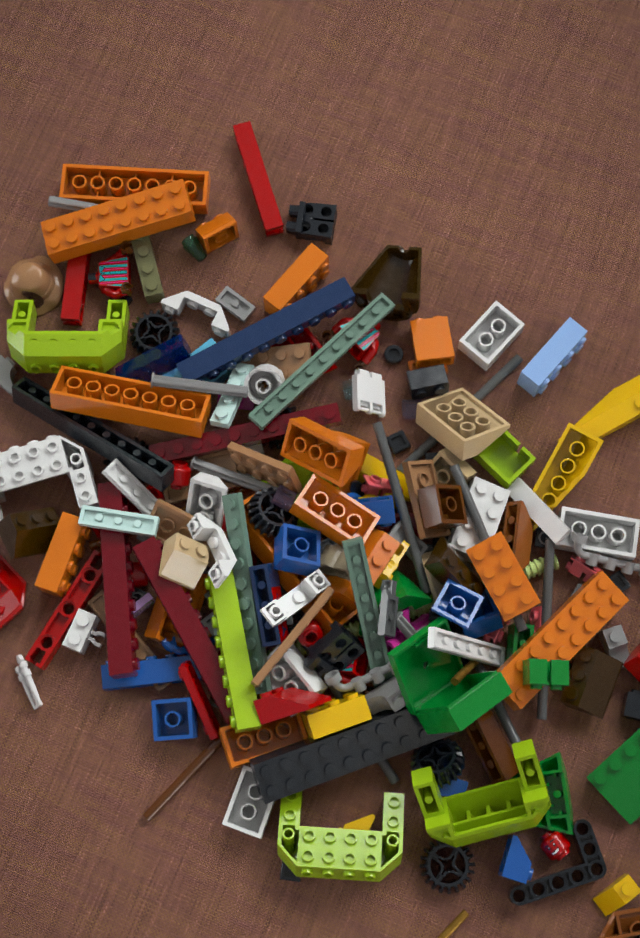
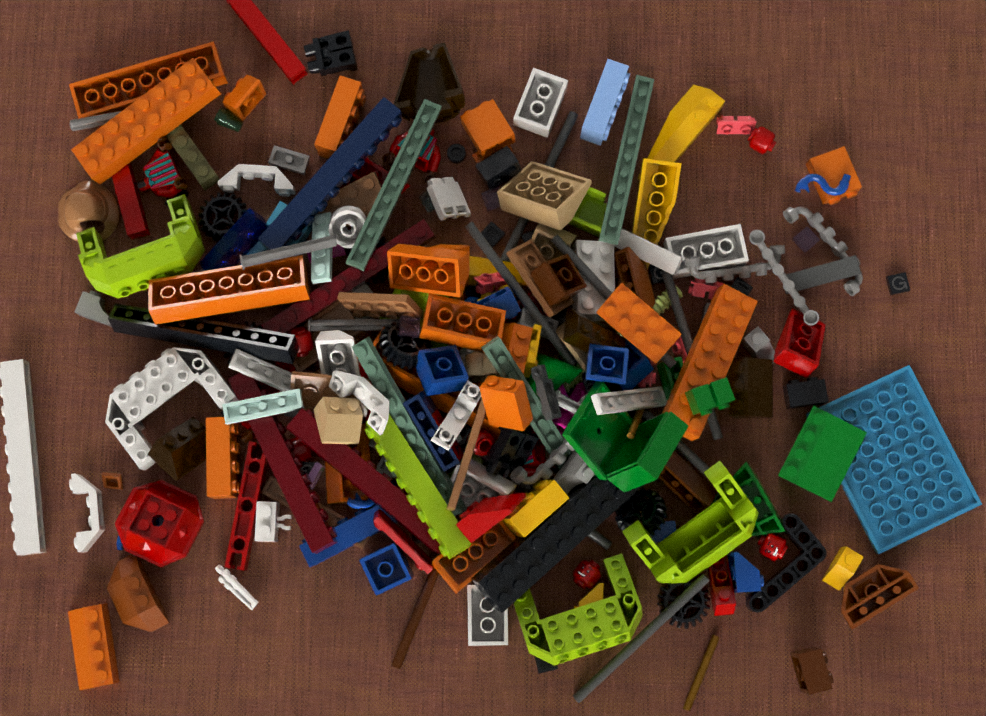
camera: 25 degrees left, 5 degrees up
(345, 603) = (506, 403): none -> orange brick
(363, 800) = (586, 574): none -> red head
(391, 884) = (645, 634): none -> dark grey piece
(489, 866) = (721, 588): none -> red slope
(552, 419) = (626, 160): none -> sand green plate

